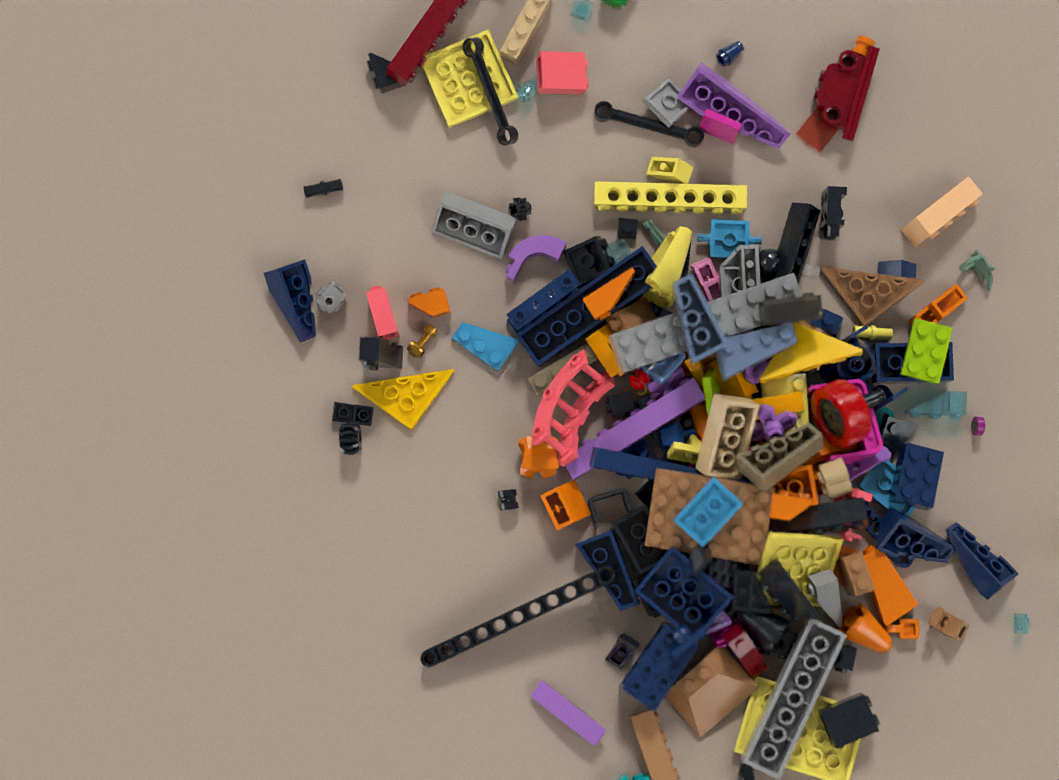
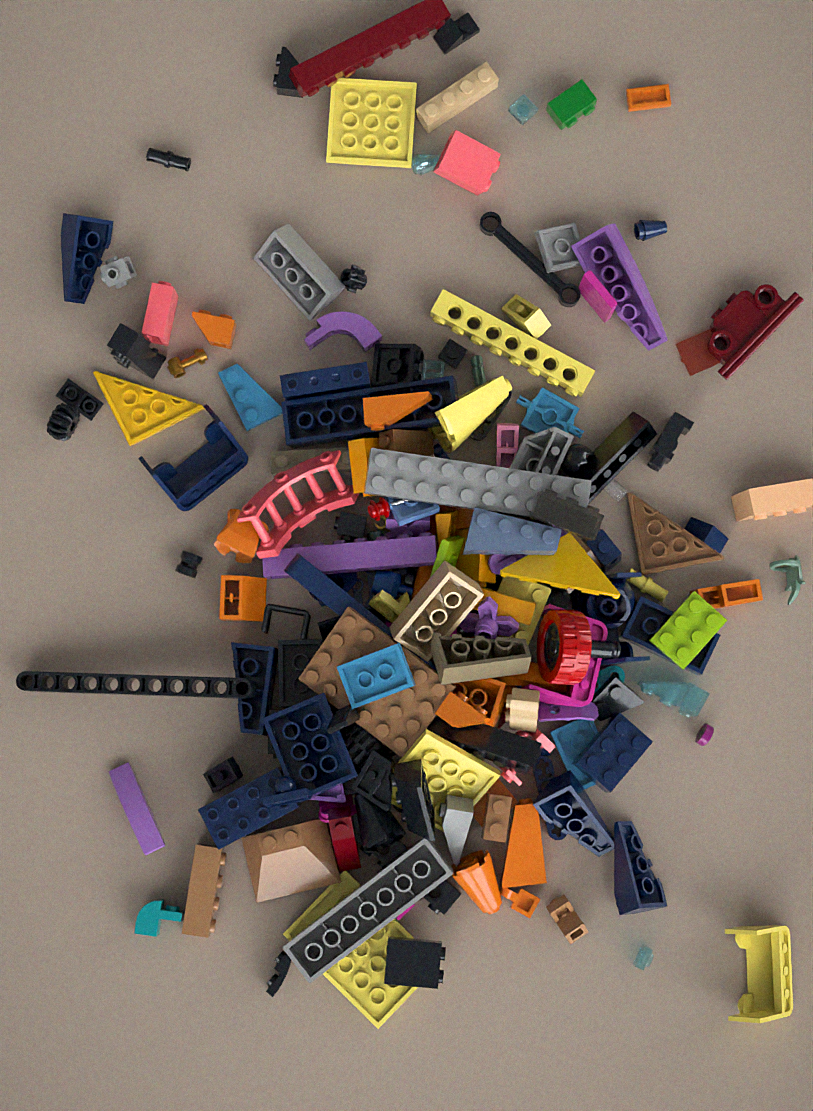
camera: 30 degrees right, 0 degrees up
(480, 418) = (204, 469): none -> dark blue windscreen
(490, 91) = (385, 145): black piece -> none
(698, 323) = (462, 483): sand blue wedge -> none
(862, 45) = (790, 286): orange wheel -> none

